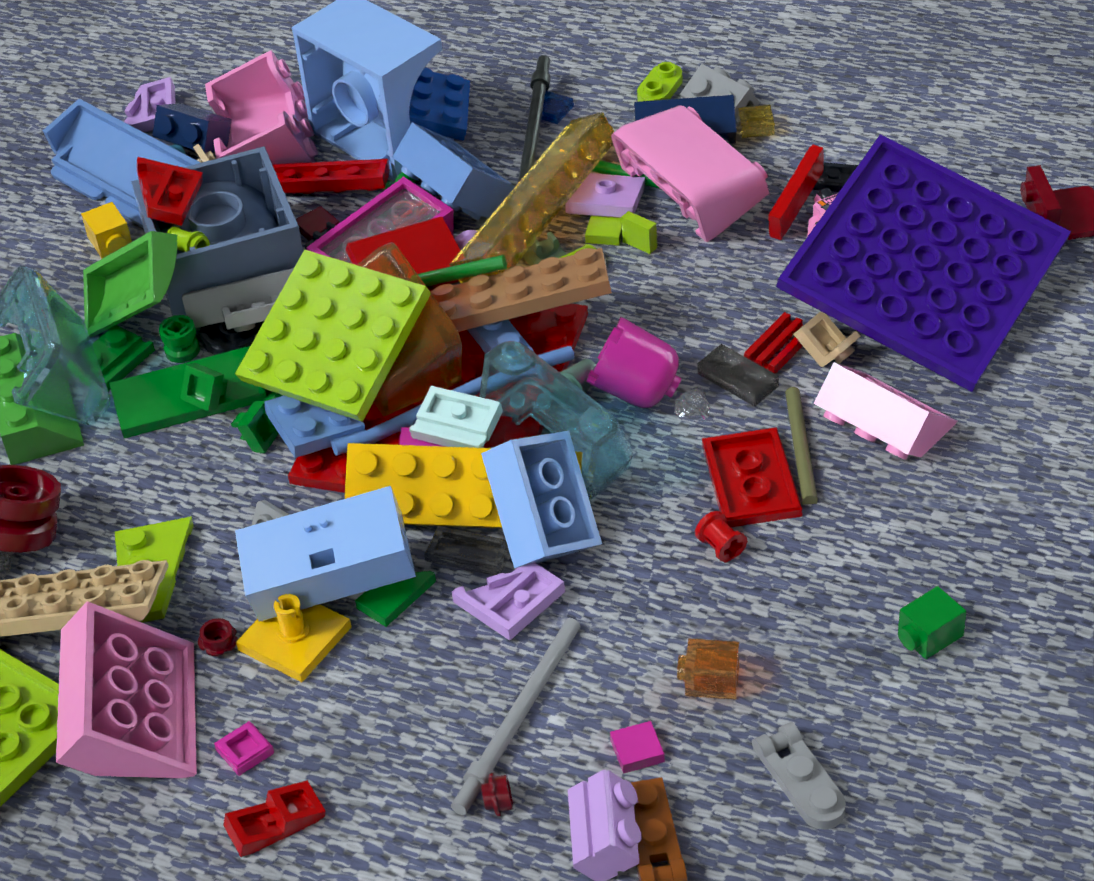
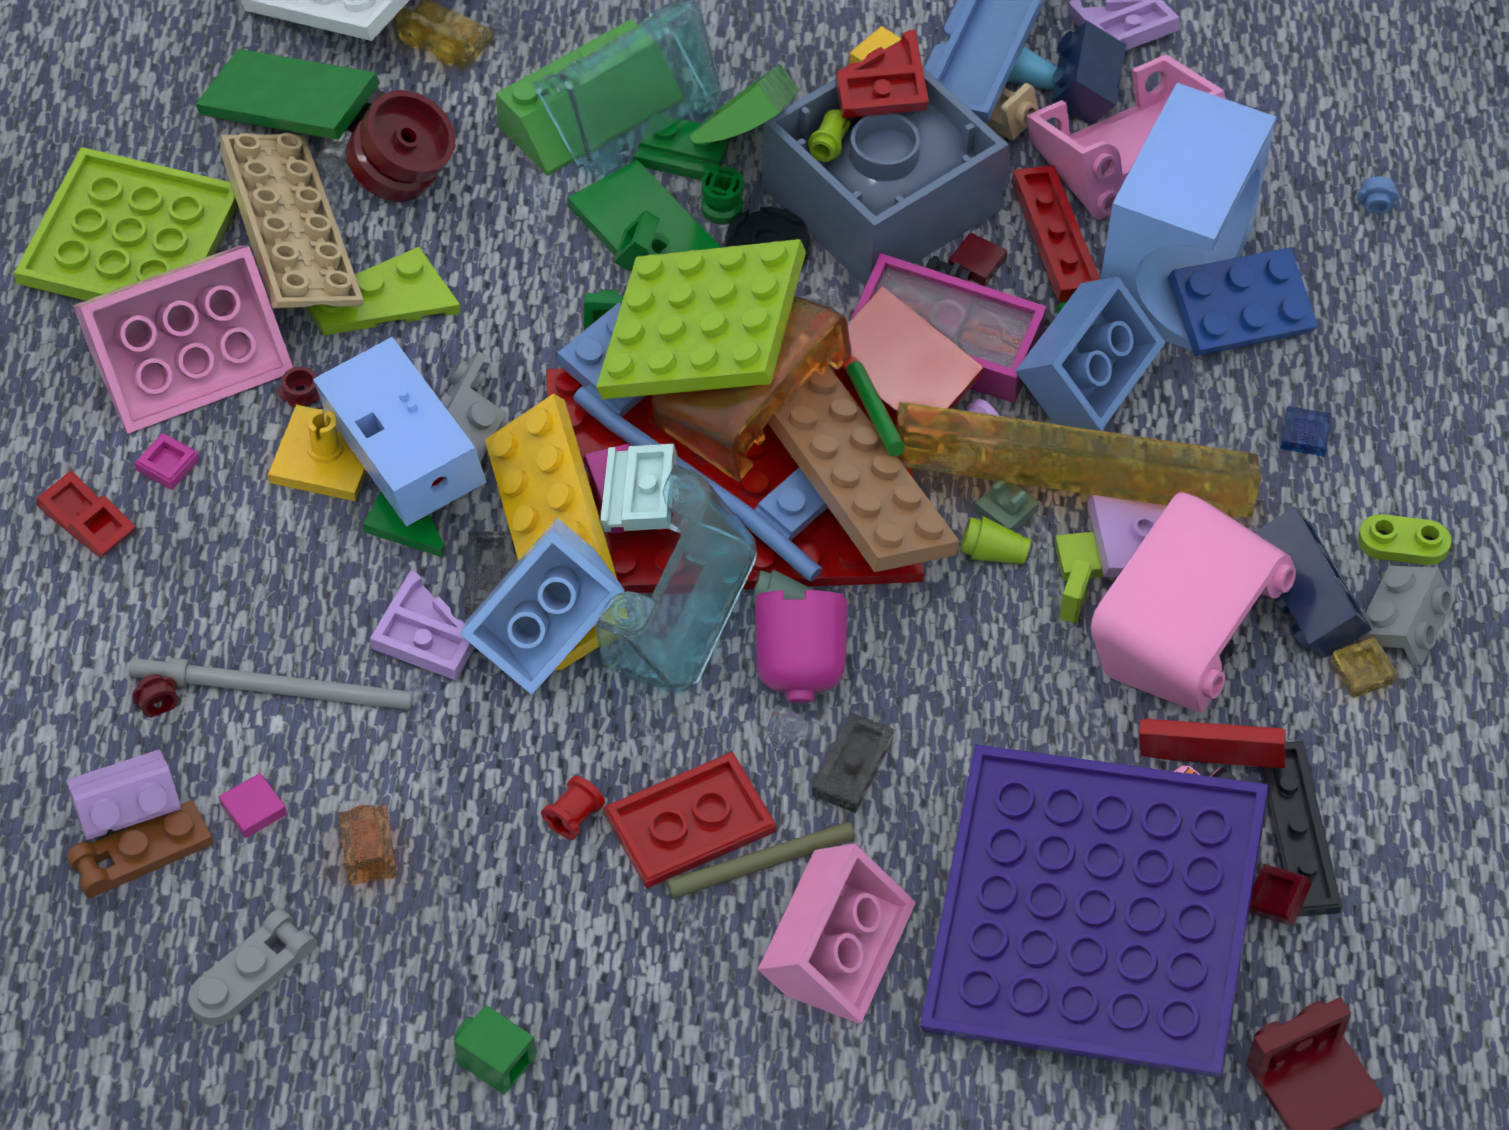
camera: 65 degrees right, 10 degrees up
(236, 303) = (783, 219): light grey bracket -> none
(540, 84) = (1330, 400): pearl dark grey bar -> none
(768, 336) = (921, 809): red tile -> none
(825, 340) = (936, 840): tan bracket -> none

